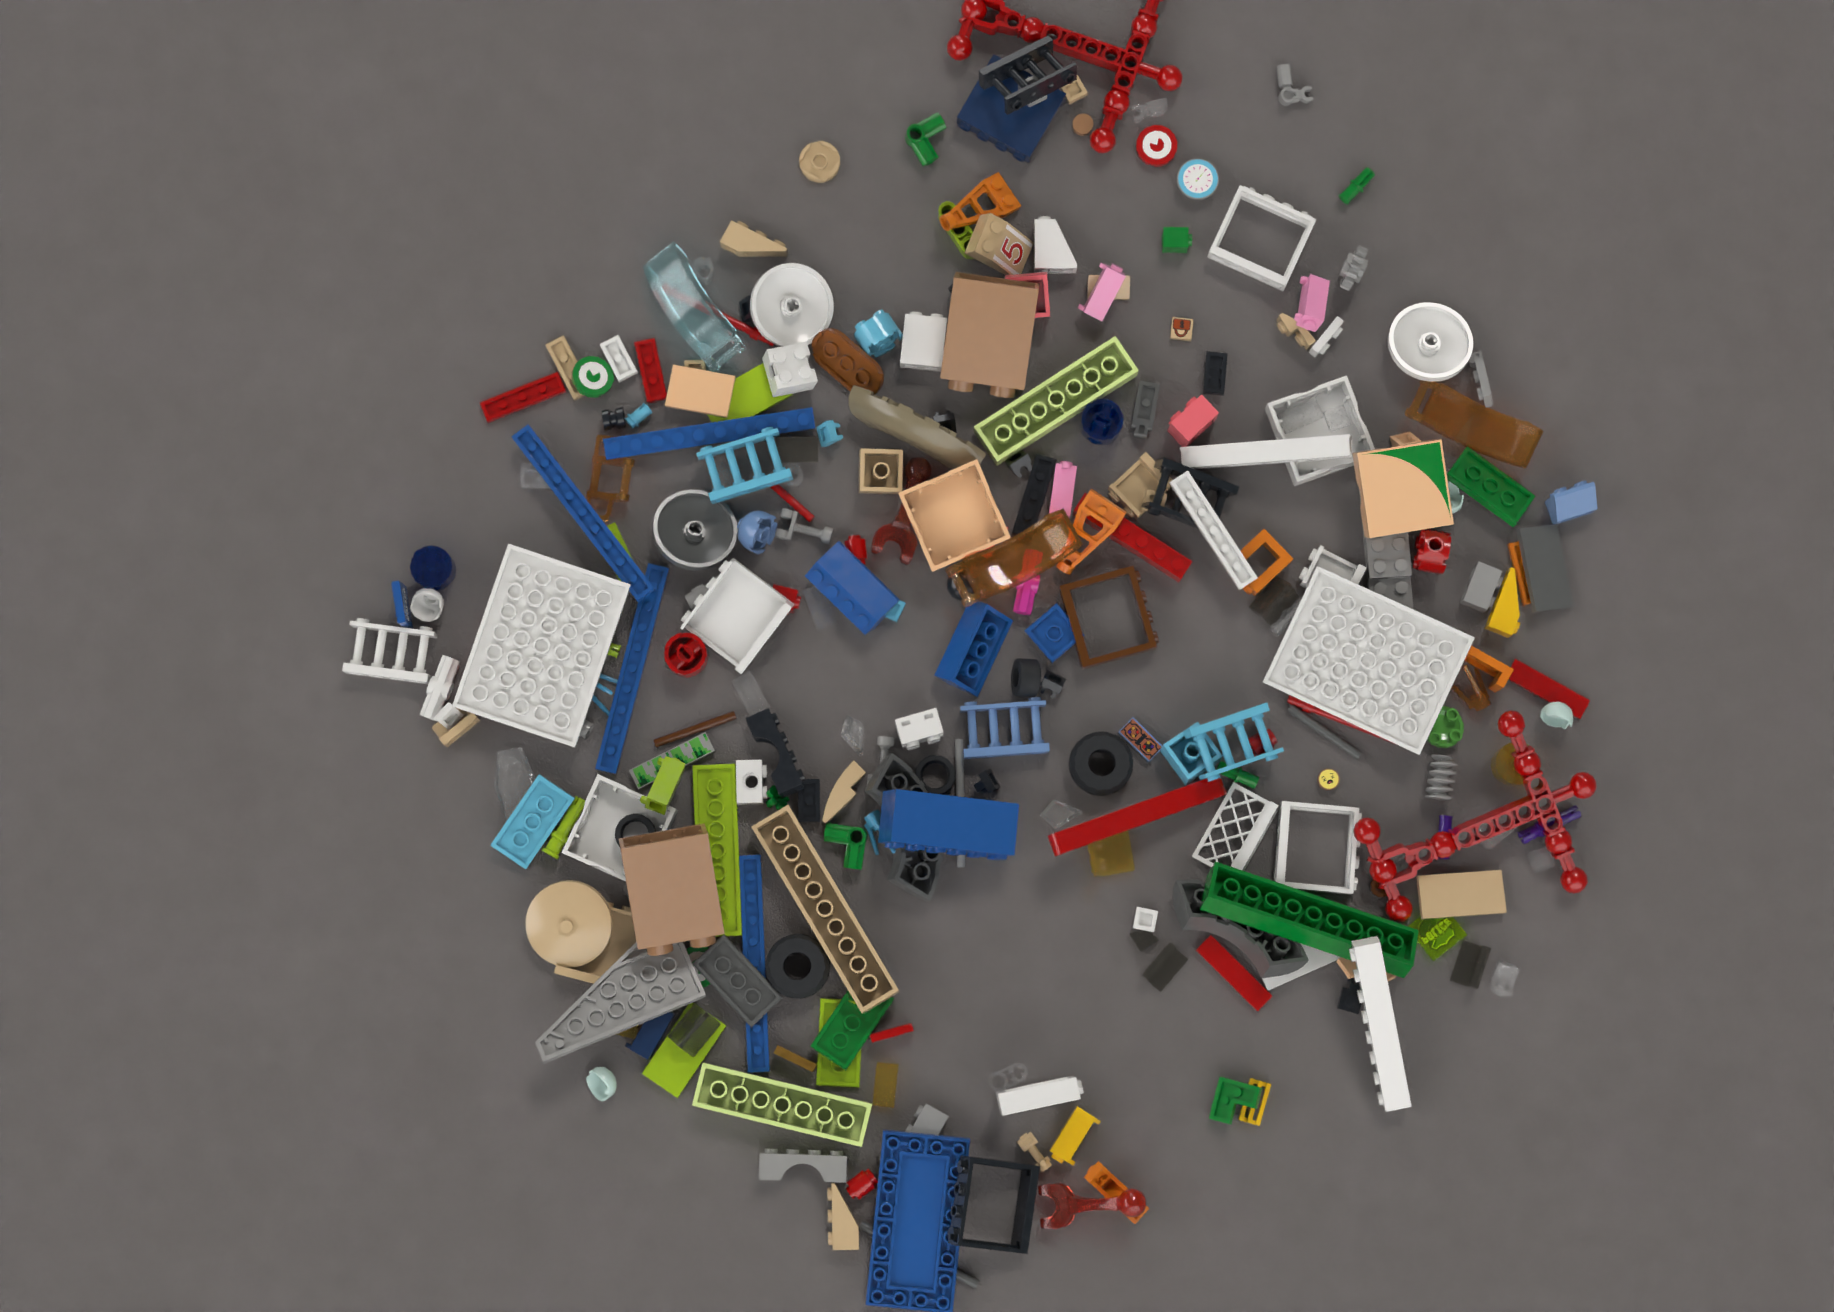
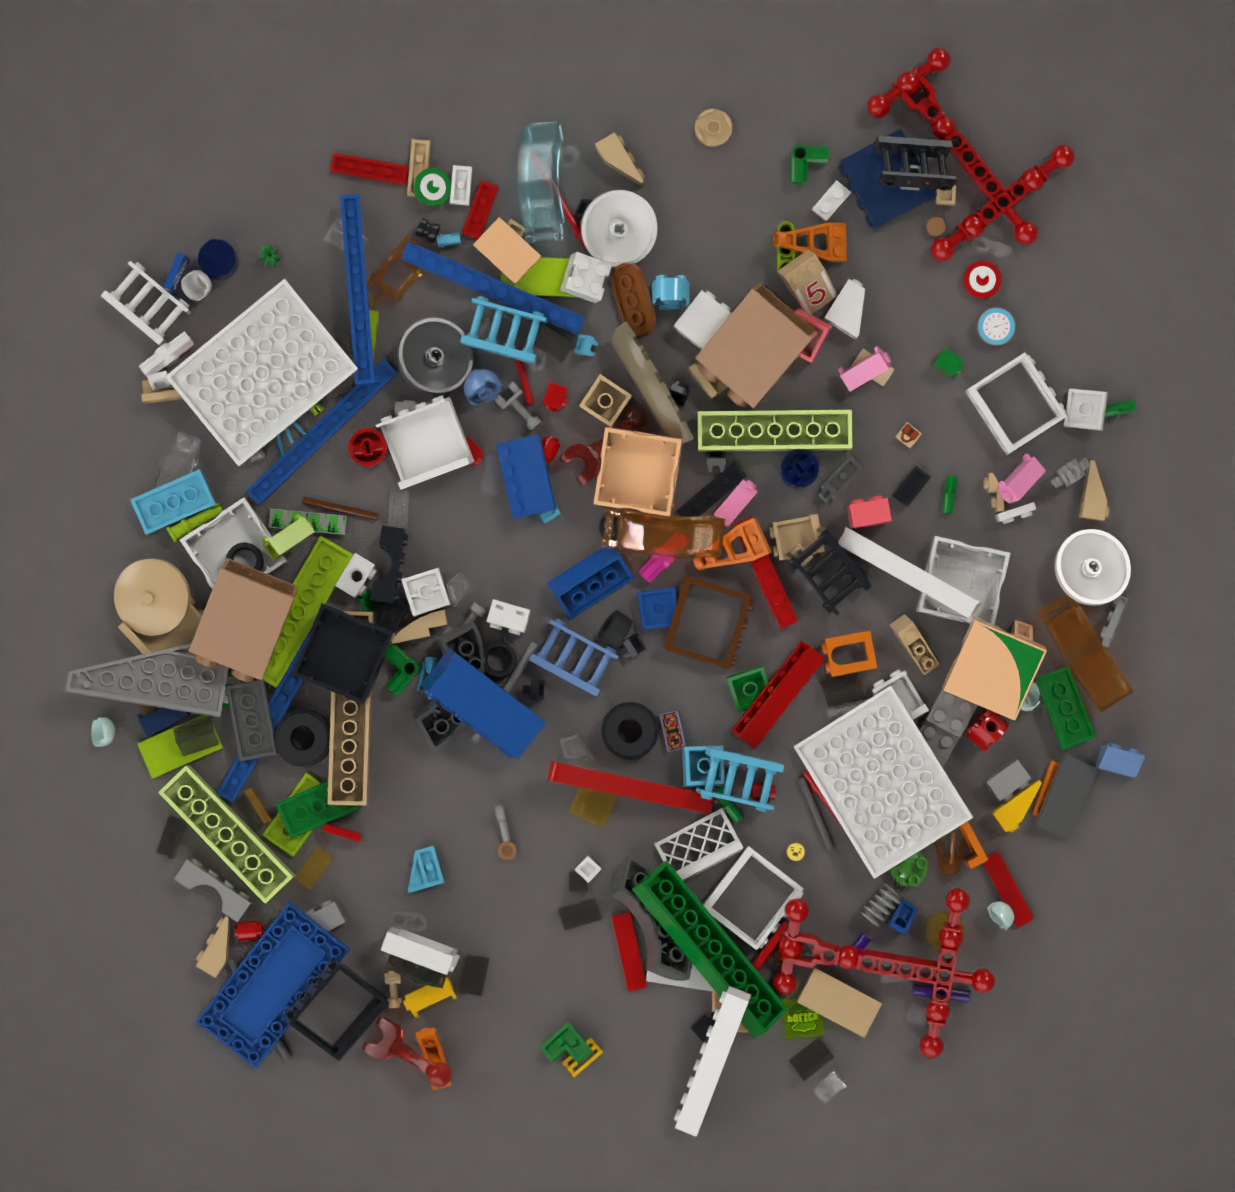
camera: 30 degrees right, 5 degrees up
(478, 535) = (269, 255): none -> green plant
(731, 1142) = (171, 837): none -> clear smoke panel
(786, 860) = (343, 654): none -> black tile
(826, 755) = (426, 592): none -> white piece
(832, 498) = (555, 397): none -> red brick
(968, 399) = (710, 388): none -> tan panel
(971, 160) = (831, 201): none -> white plate
(992, 1018) = (425, 870): none -> medium azure wing
(1033, 923) = (502, 823): none -> light grey bar
(1057, 951) = (507, 850): none -> medium nougat tile
(1057, 1115) = (420, 975): none -> clear smoke panel
(1102, 1089) = (473, 975): none -> clear smoke panel
(1186, 653) = (747, 686): none -> green slope
(1213, 530) = (828, 607): white plate -> none
(1217, 643) = (778, 695): none -> red brick
(1255, 359) = (949, 494): none -> green axle
(1289, 95) = (1110, 304): light grey bar -> none
(1312, 516) = (914, 644): none -> tan slope
(1329, 203) = (1085, 409): none -> white tile
(1364, 882) = (770, 948): none -> red tile
(1389, 279) = (1093, 500): none -> tan slope
(1467, 777) = (902, 917): none -> blue slope

